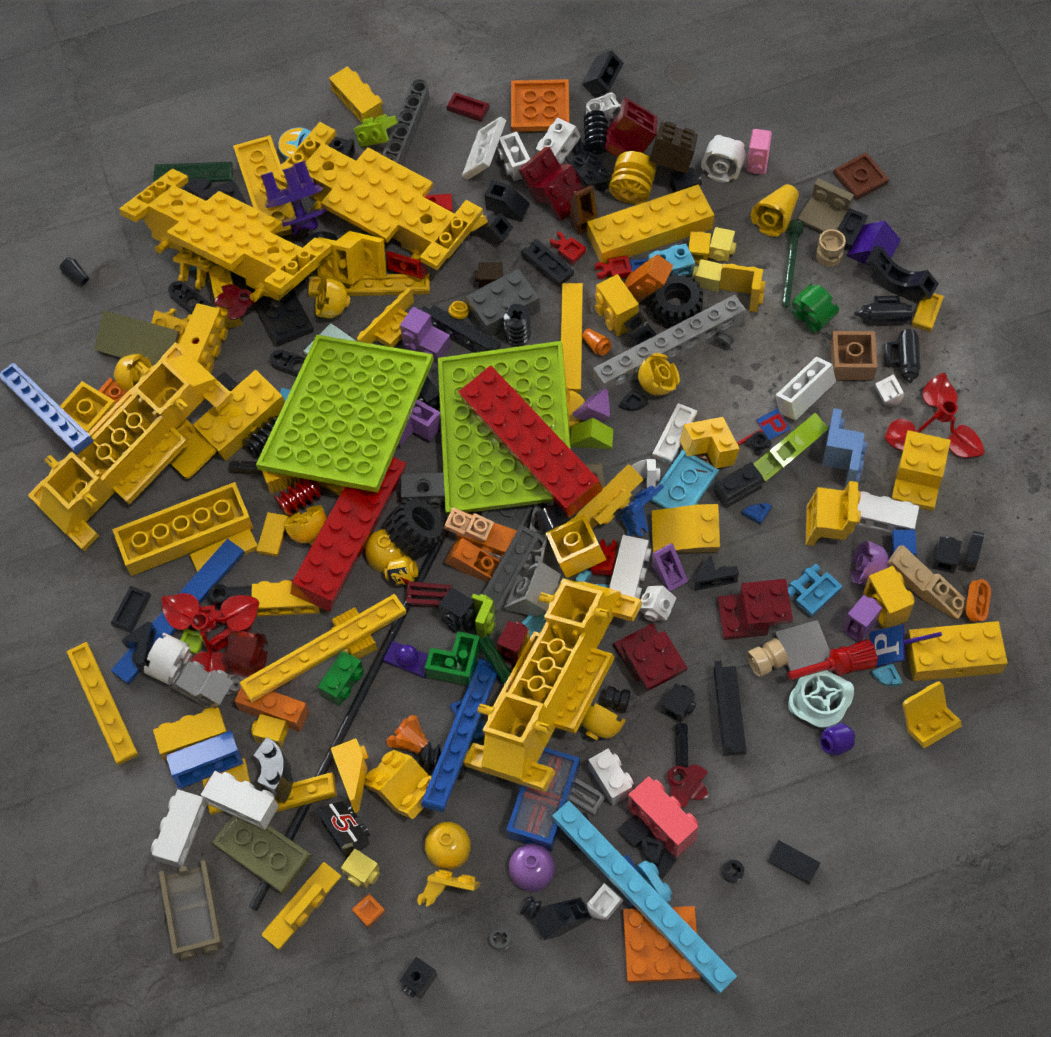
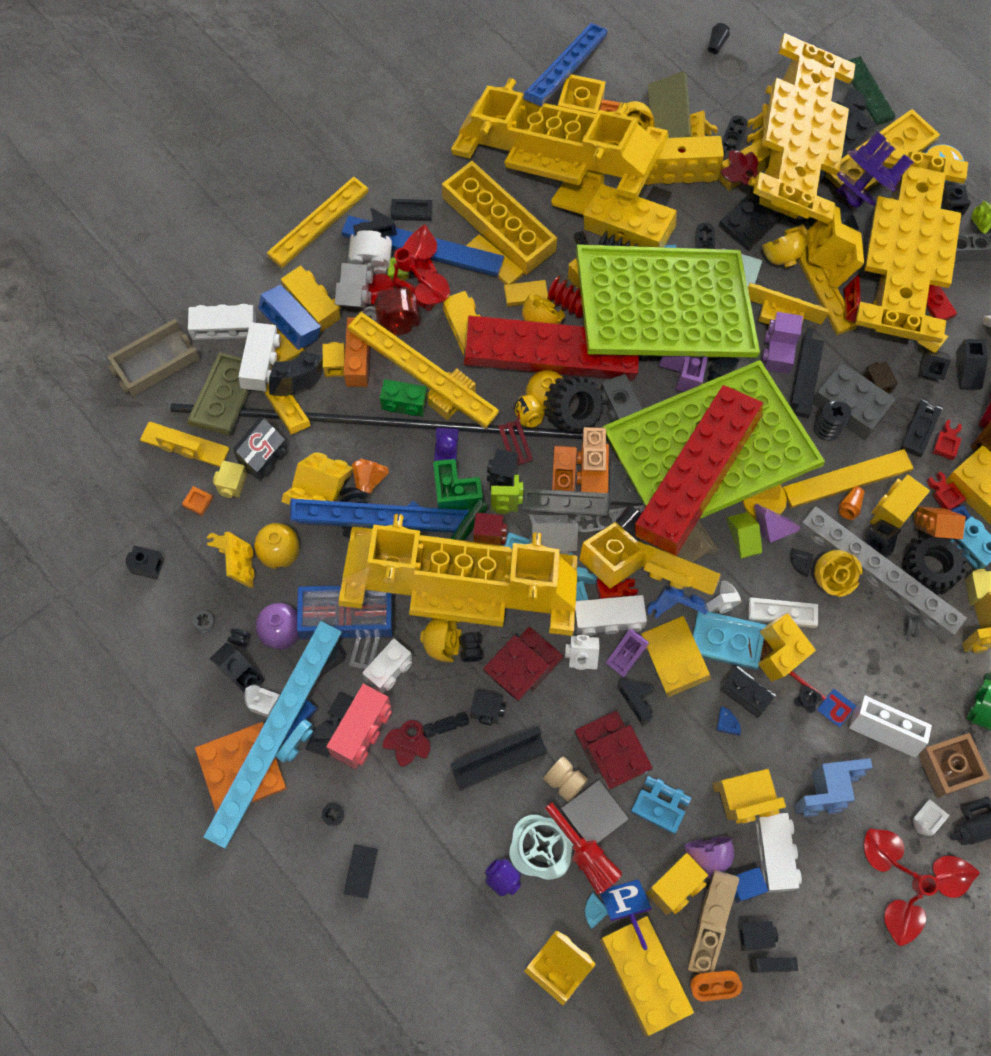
camera: 65 degrees right, 5 degrees up
(220, 589) = (452, 278): black piece -> none
(352, 768) = (318, 436): yellow slope -> none
(458, 310) = (828, 364): yellow plate -> none
(790, 446) = (814, 731): lime slope -> none
(862, 618) = (643, 863): medium lavender brick -> none
(921, 470) = (844, 878): yellow bracket -> none

